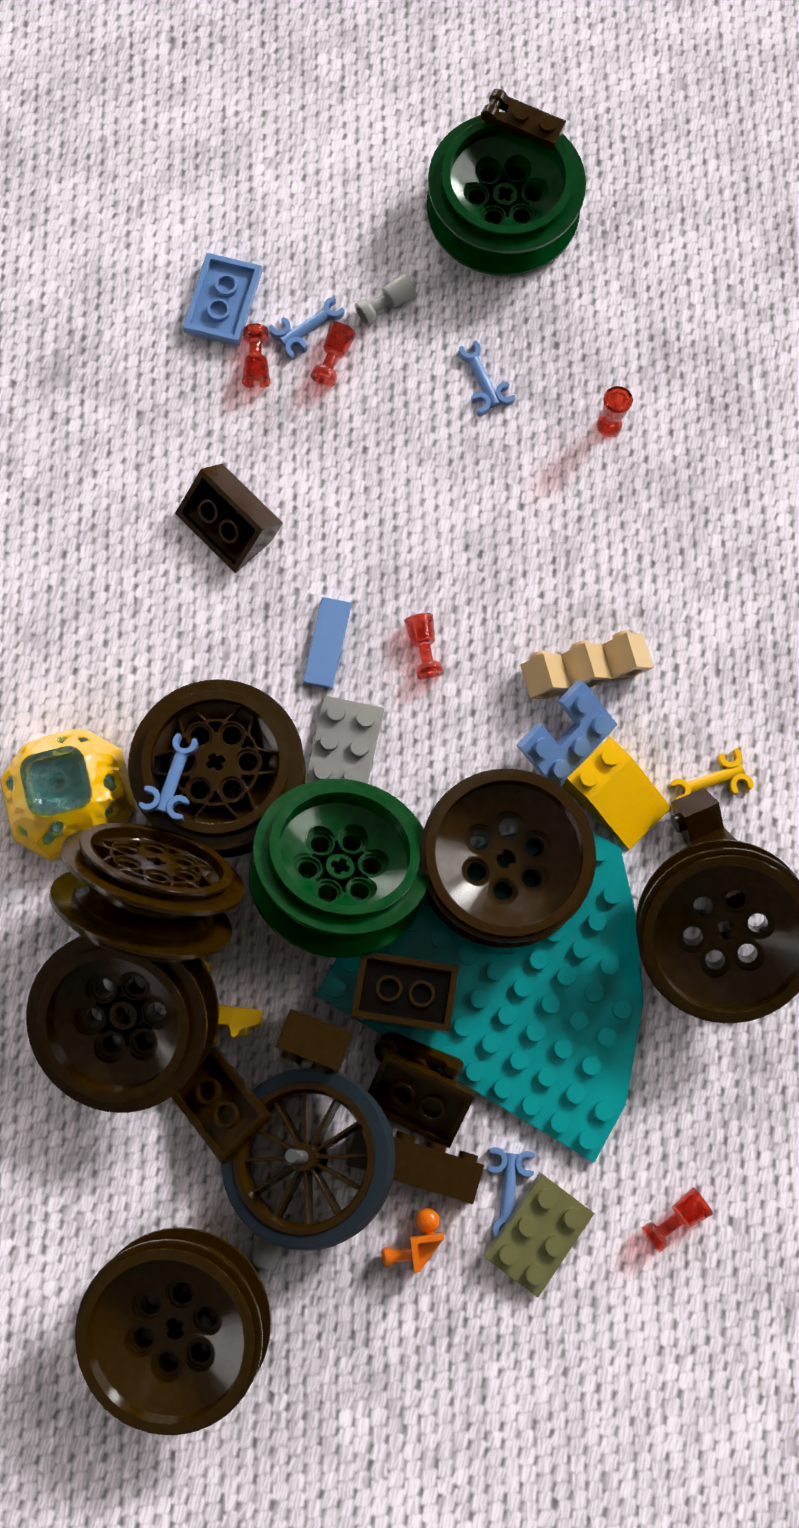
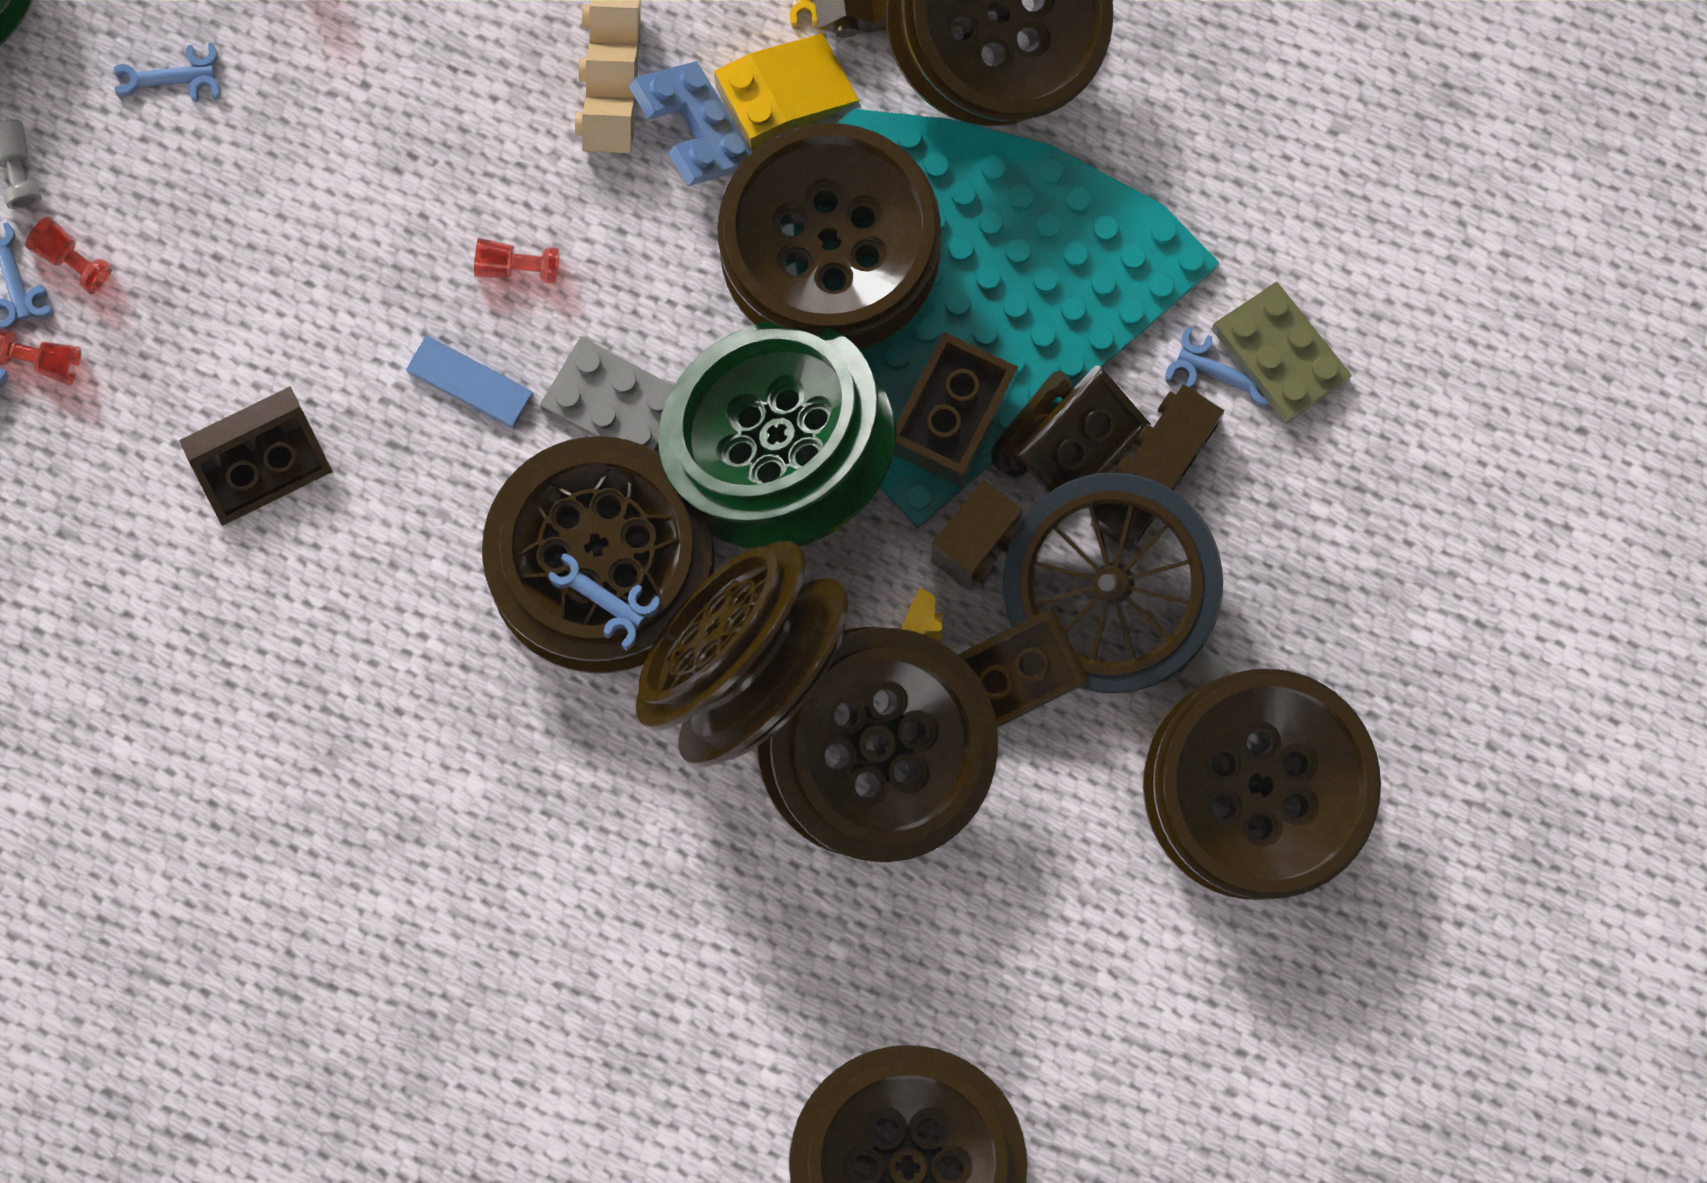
camera: 65 degrees left, 0 degrees up
(92, 795) = (568, 796): yellow rock -> none
(421, 1244) = (1254, 491): orange piece -> none
(687, 1212) = (1308, 177): clear red piece -> none

